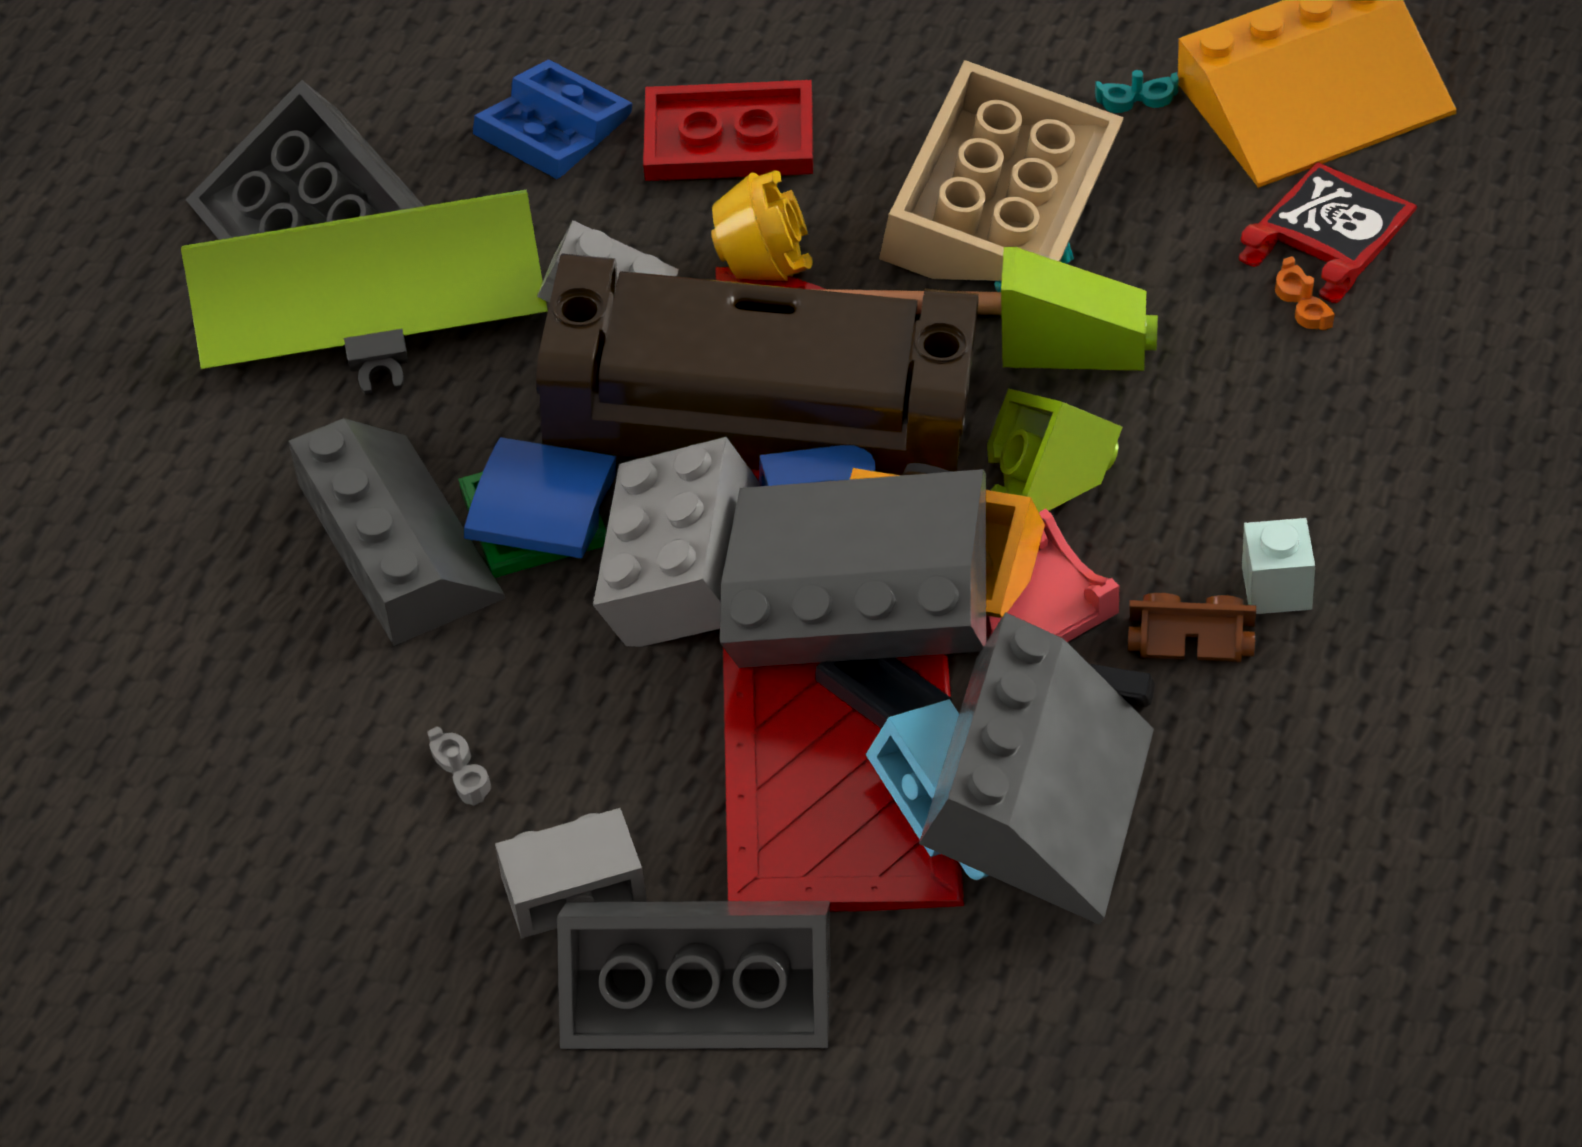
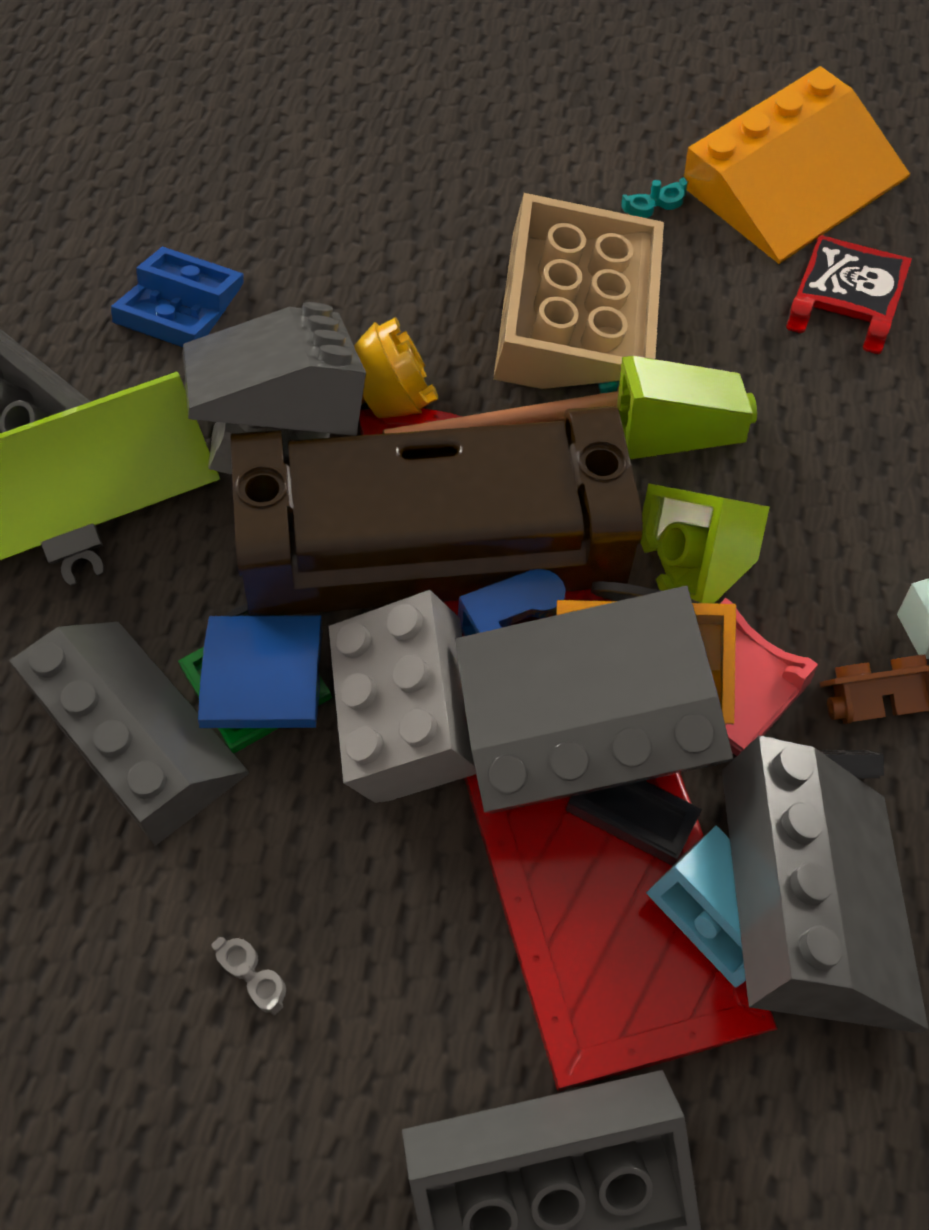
camera: 15 degrees left, 10 degrees up
(569, 863) = (393, 1084): light grey brick -> none
(631, 204) = (278, 373): none -> dark grey slope
(728, 130) = (352, 275): red plate -> none
(1295, 286) = (843, 346): orange piece -> none

